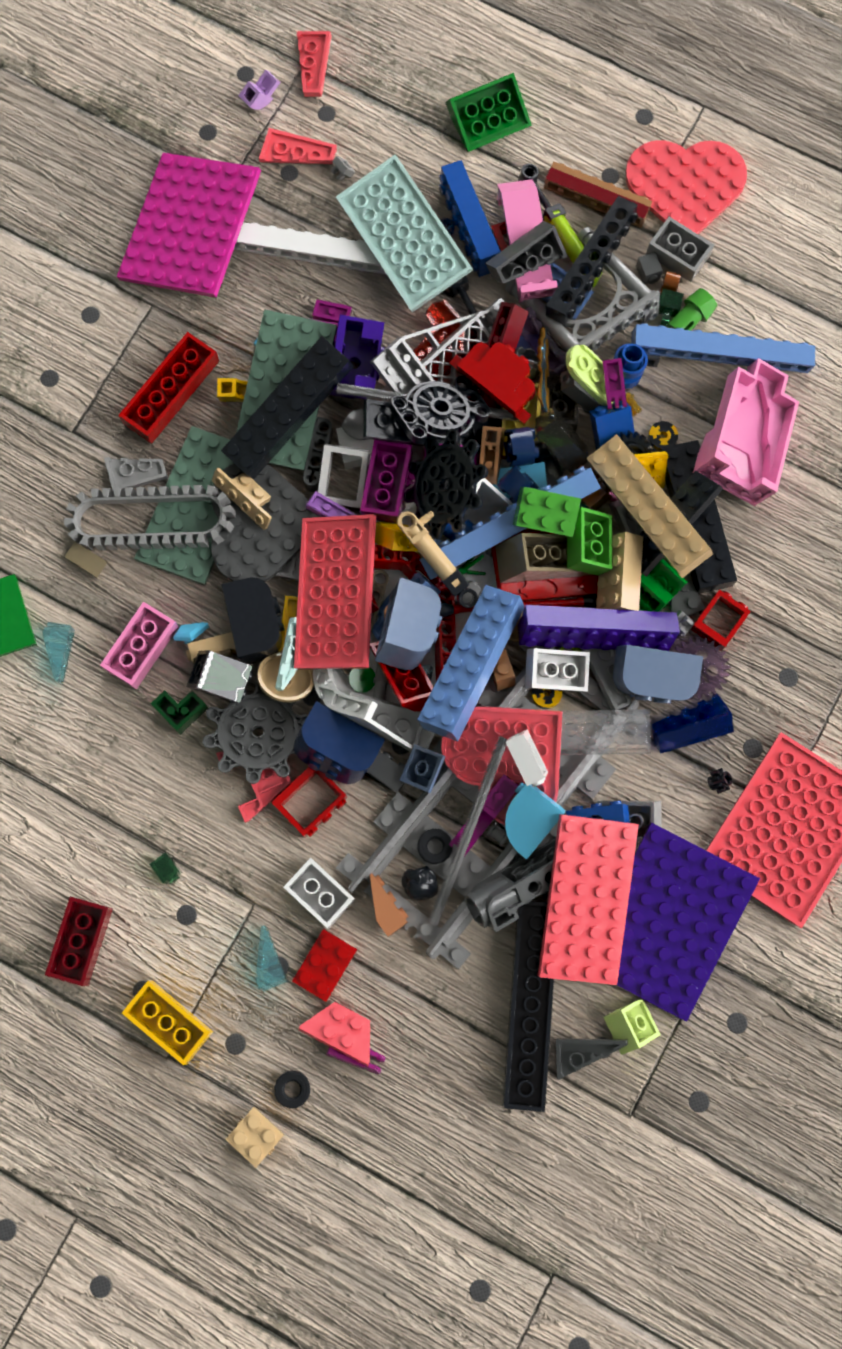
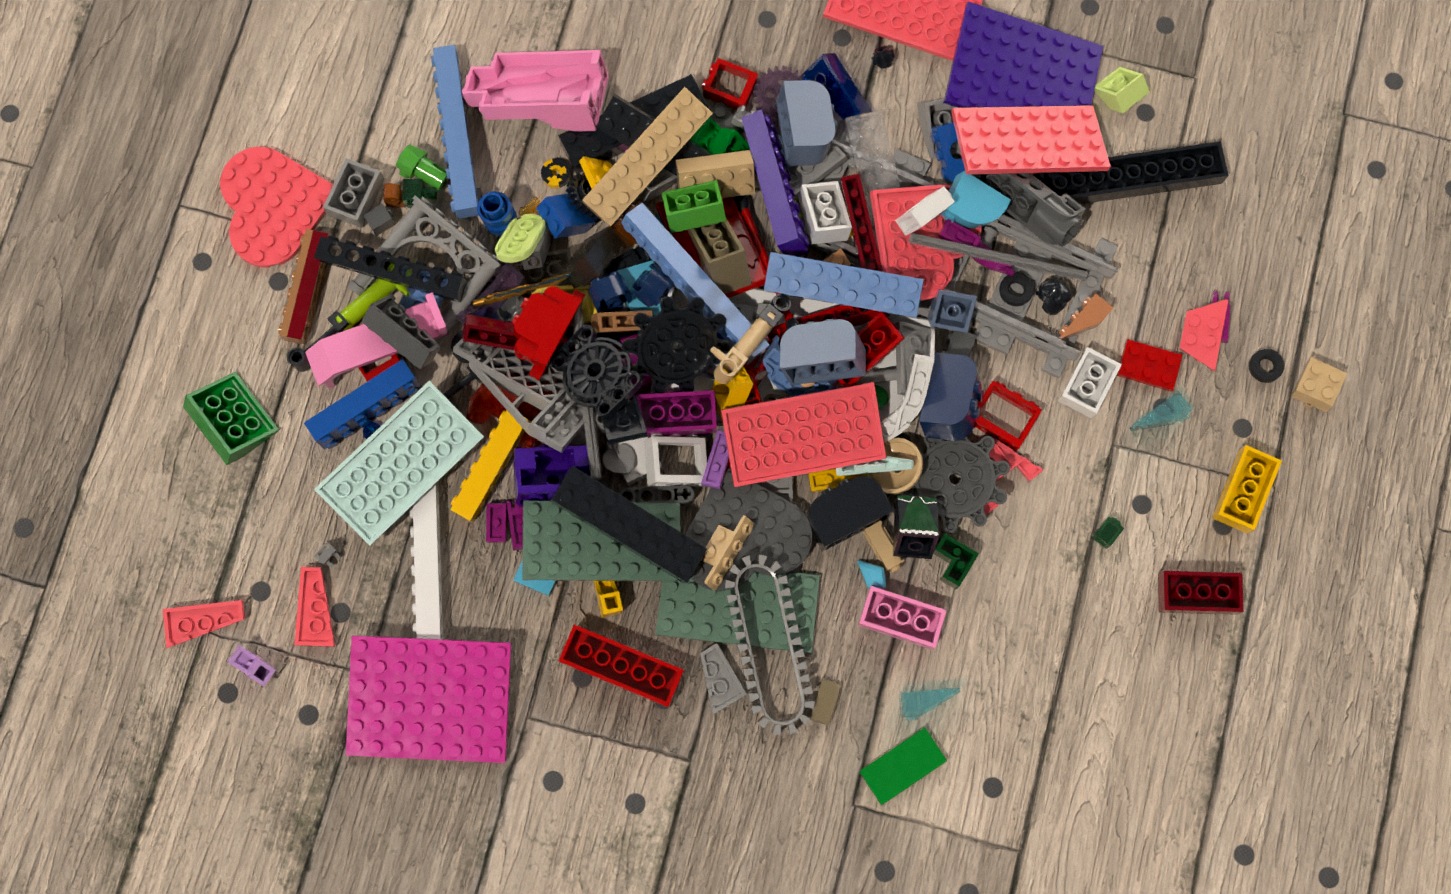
camera: 105 degrees left, 0 degrees up
(379, 308) = (488, 467): none -> yellow brick
(534, 698) = (860, 222): none -> dark red brick
(546, 511) = (681, 245): bright green brick -> none
(578, 1053) = (1158, 127): dark grey wing -> none
(614, 382) = (526, 215): magenta hinge -> none

